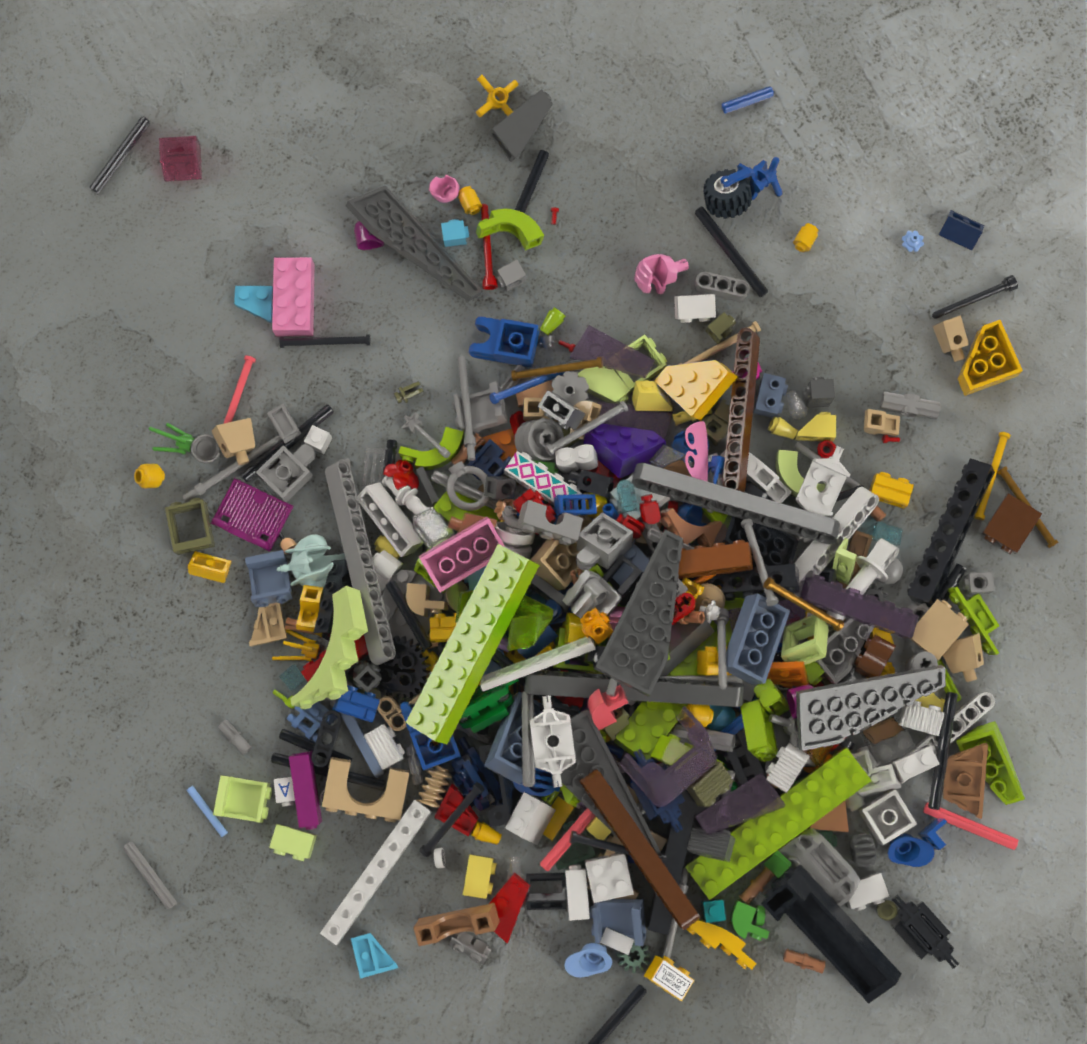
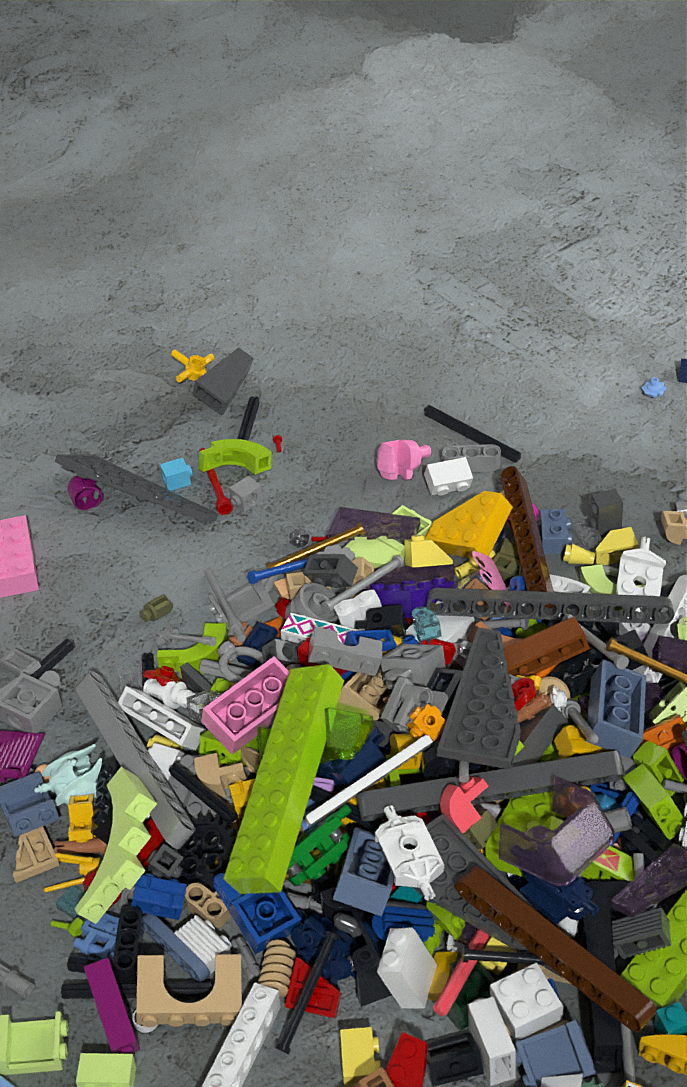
camera: 10 degrees left, 35 degrees down
(284, 791) = (86, 1019): white brick -> none
(318, 439) = (64, 665): white brick -> none
(324, 341) = (53, 588): black bar -> none
(439, 858) = (302, 1050): white tile -> none
(444, 189) = (157, 444): bright pink hair -> none
(469, 200) = (185, 447): yellow brick -> none
(485, 833) = (355, 1010): yellow cone -> none
(503, 341) = (252, 543): blue brick -> none
(527, 746) = (379, 859): light grey axle -> none
(552, 321) = (301, 518): lime cone -> none
(649, 510) = (454, 629): red arm -> none
(710, 785) = (615, 863): olive brick -> none
(721, 327) = (481, 483): olive brick -> none
(731, 191) = (463, 378): piece -> none
(747, 99) = (448, 324): axle -> none
(806, 237) = (544, 406): yellow brick -> none

